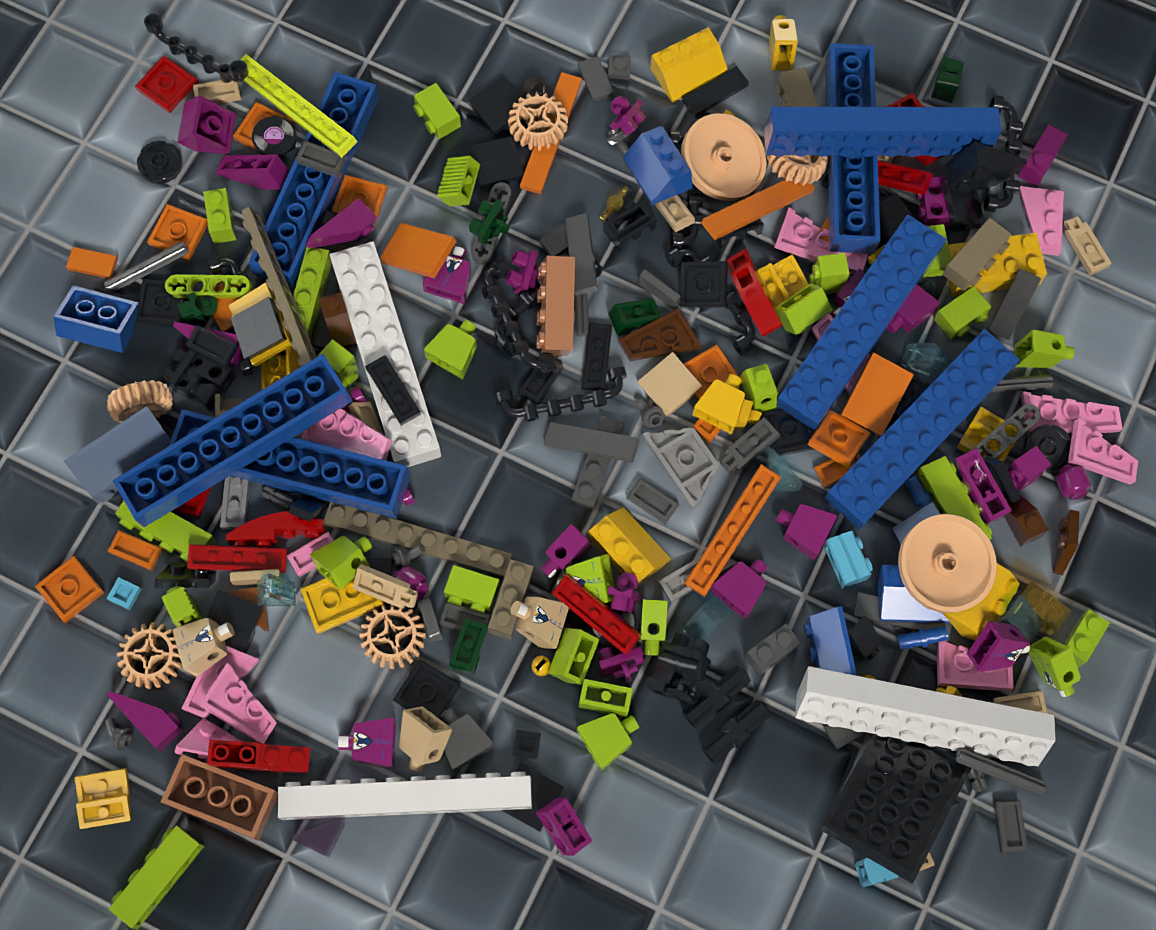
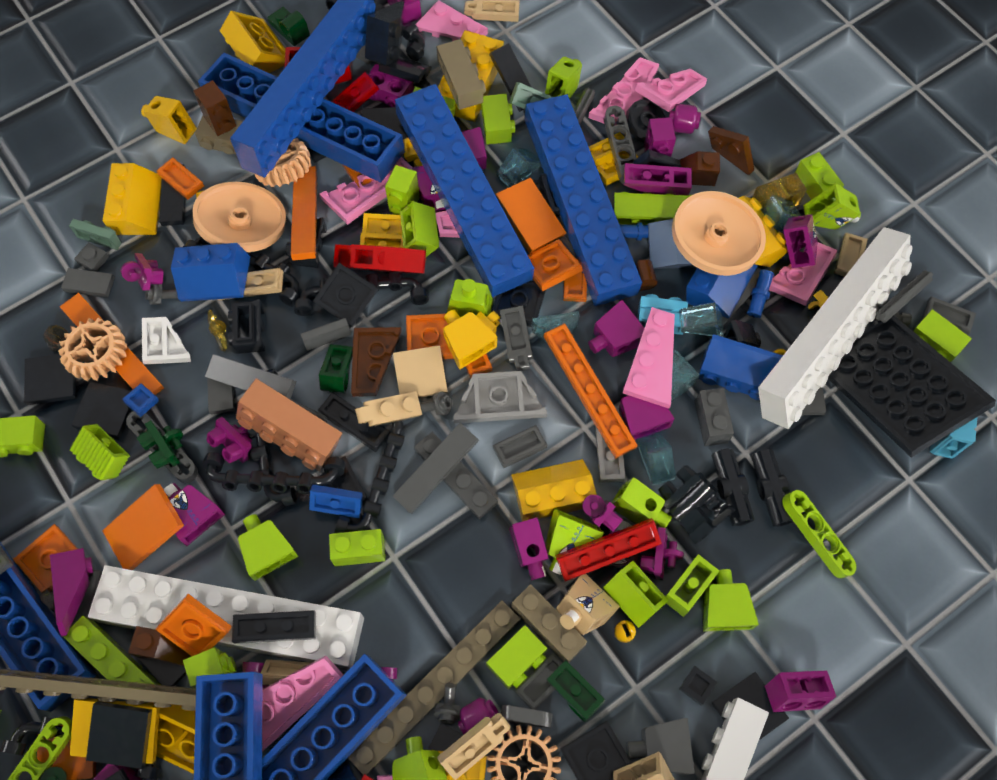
camera: 60 degrees left, 5 degrees down
(360, 332) = (193, 626): none -> orange tile
(491, 418) = (357, 547): none -> lime brick
(518, 183) = (140, 400): none -> blue tile
(518, 379) = (335, 501): none -> blue plate
(576, 168) = (161, 342): none -> white wing
(619, 377) = (389, 409): none -> tan hinge
(639, 49) = (98, 235): none -> sand green plate
(717, 789) = (821, 531): none -> lime beam
(732, 88) = (180, 178): none -> orange tile
(789, 570) = (653, 363): none -> bright pink wing
(793, 603) = (683, 376): none -> clear light blue slope
(806, 75) = (215, 108): none -> reddish brown brick
(858, 595) = (702, 320): none -> clear light blue slope
(879, 526) = (647, 274): none -> reddish brown brick
(907, 62) = (253, 41): none -> yellow slope
(976, 823) = (942, 335): none -> lime brick
(999, 327) = (524, 94): none -> sand green plate

